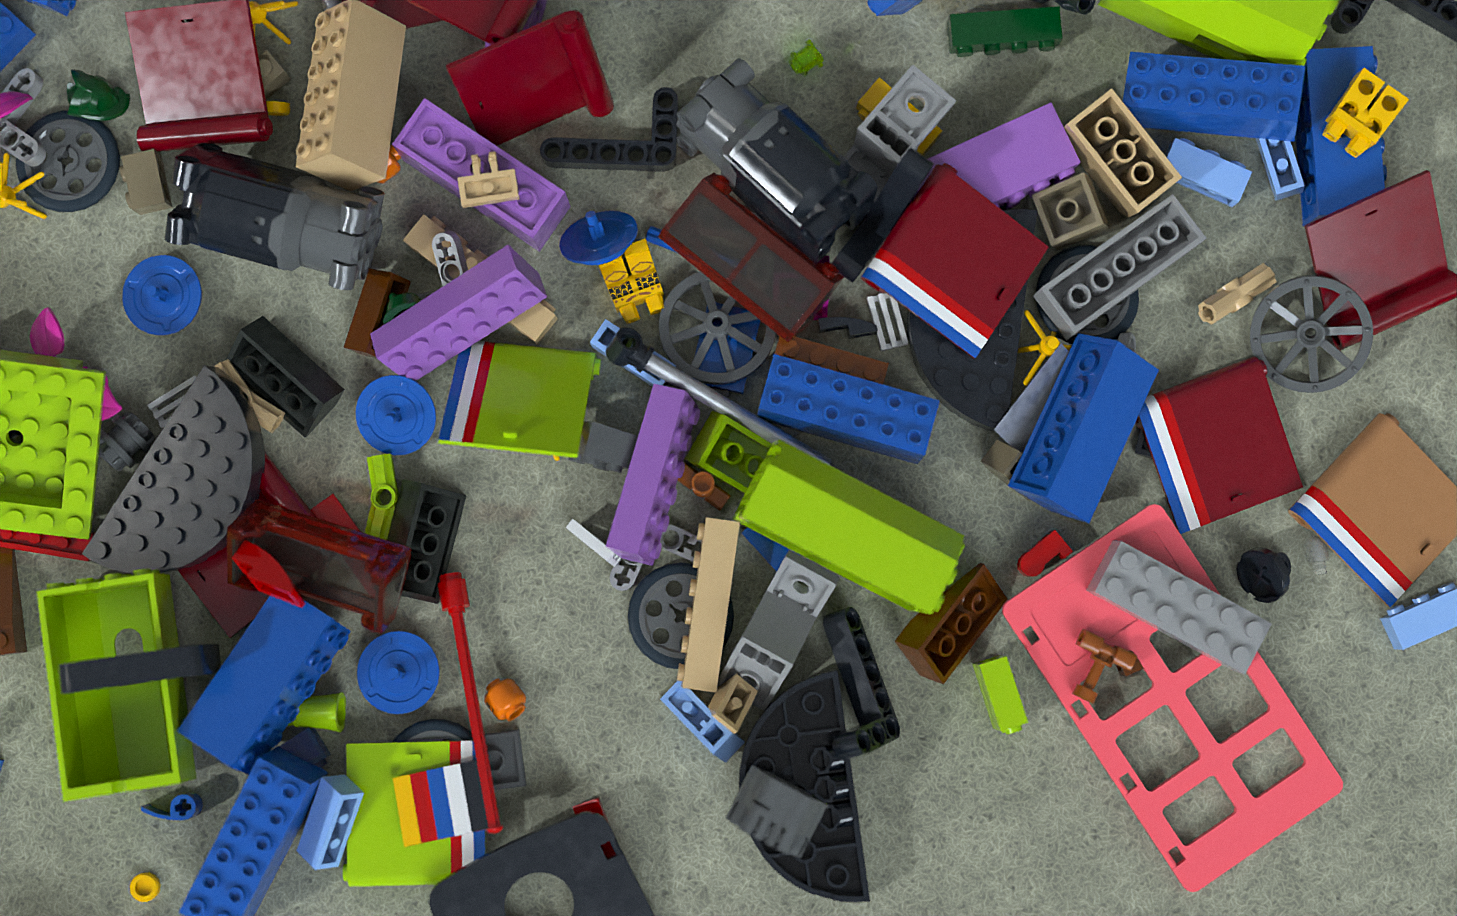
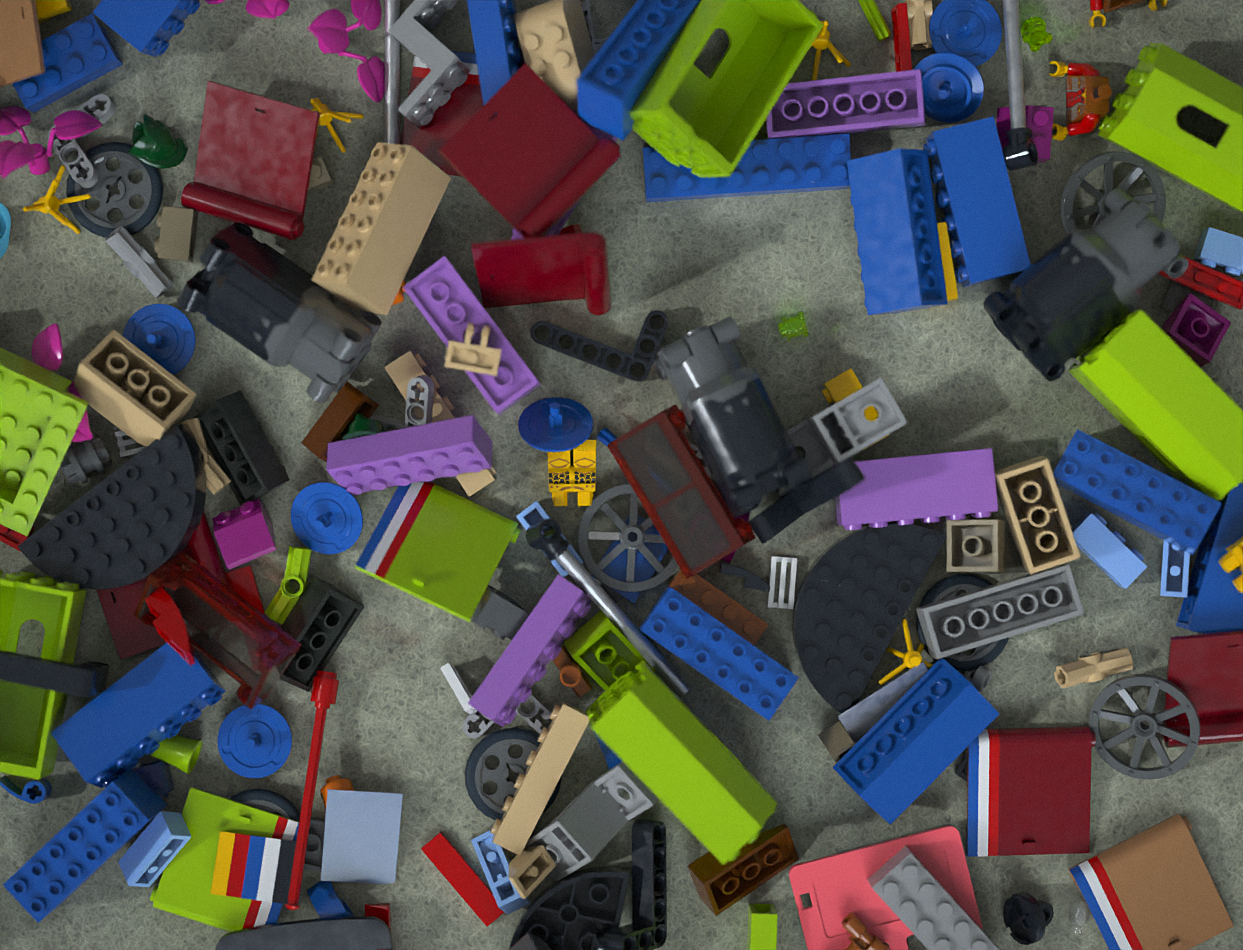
camera: 20 degrees right, 5 degrees up
(116, 222) = (139, 261): none -> light grey piece
(147, 348) = (132, 389): none -> tan brick
(278, 108) = (314, 208): yellow tile -> none
(314, 458) = (244, 533): none -> magenta slope
(530, 814) = (327, 901): none -> blue panel
(543, 733) = (361, 836): none -> sand blue sticker
(666, 742) = (462, 878): none -> red tile
(954, 259) = (855, 558): dark red door -> none
(1004, 30) = (977, 362): dark green brick -> none
(1035, 558) = (841, 831): red leg -> none

